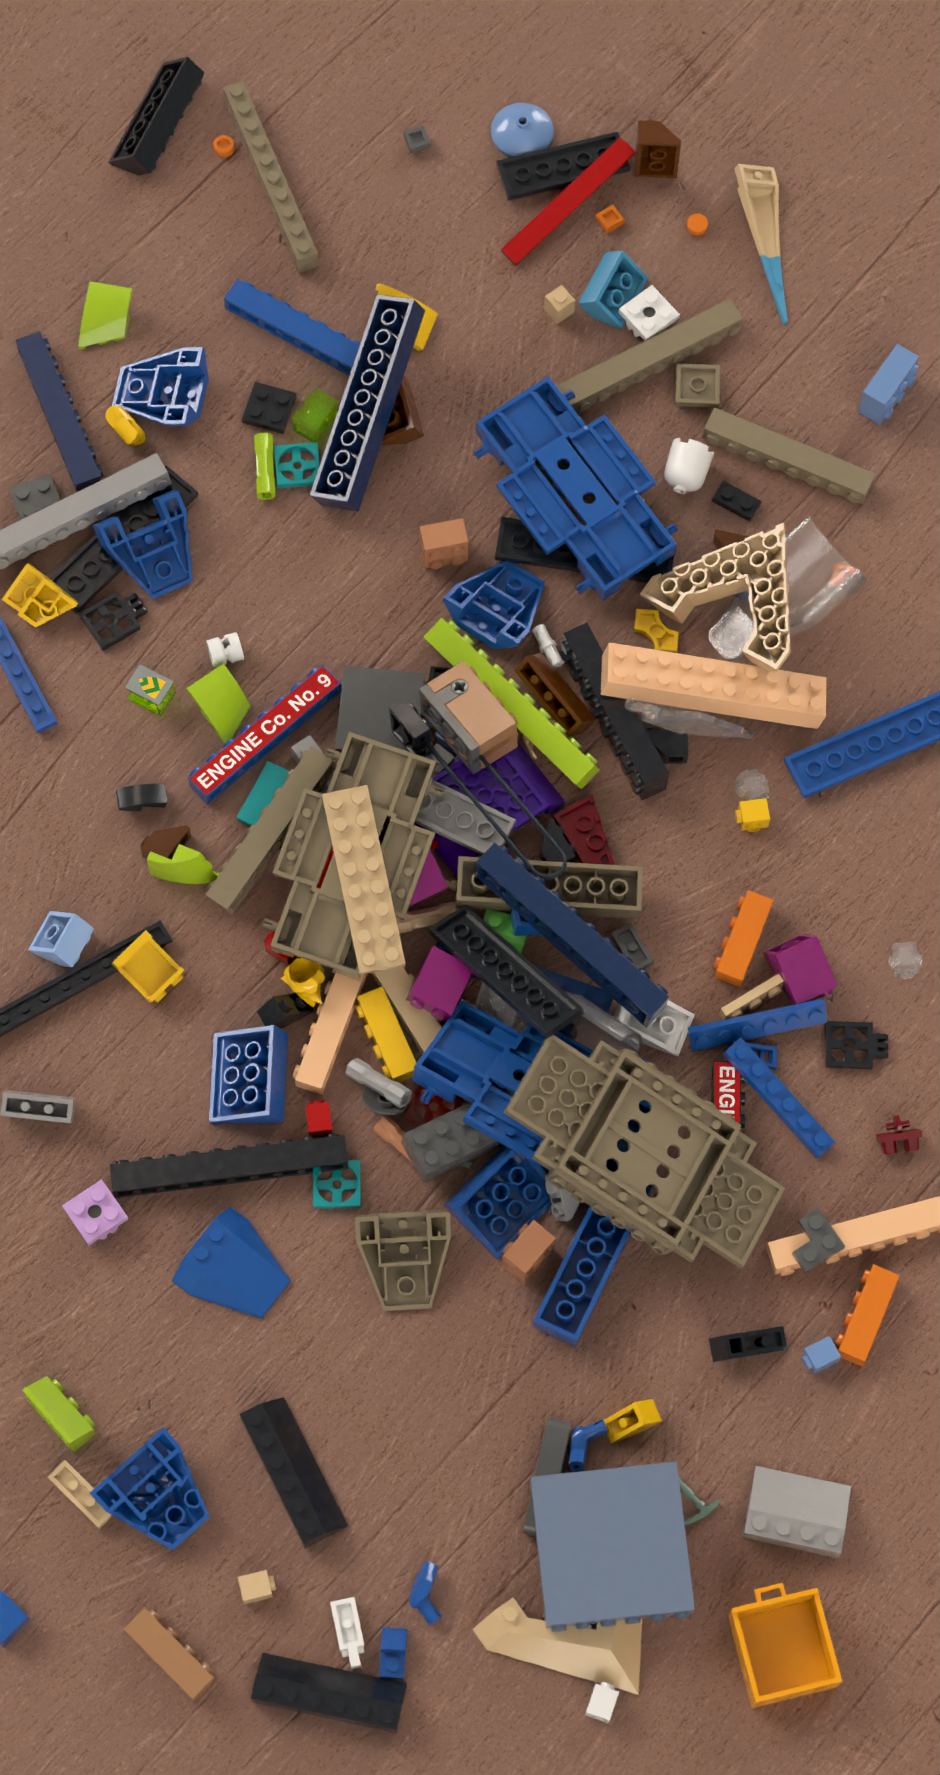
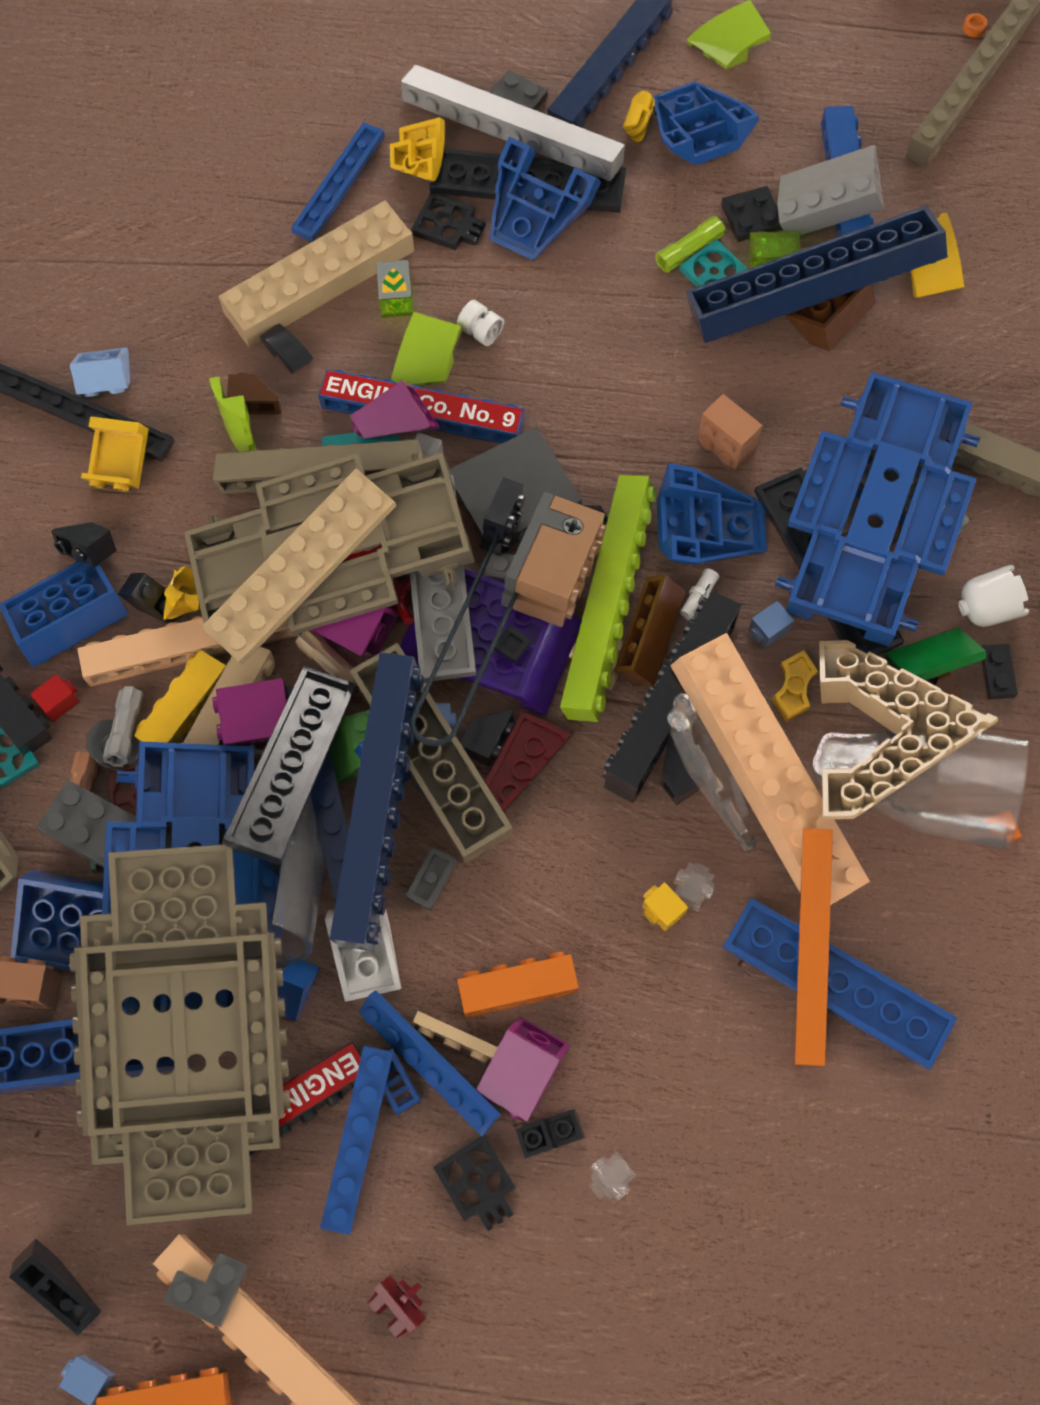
camera: 60 degrees right, 0 degrees up
(93, 736) = (316, 273): none -> tan brick
(207, 1030) = (84, 543): none -> black slope
(271, 752) = (393, 414): none -> magenta slope
(300, 344) = (830, 192): none -> light grey slope
(514, 782) = (512, 644): none -> black plate
(604, 616) = (770, 624): none -> medium blue brick
(700, 529) = (937, 654): none -> green tile
(845, 738) = (813, 947): none -> orange tile
(852, 980) = (550, 1133): none -> black slope

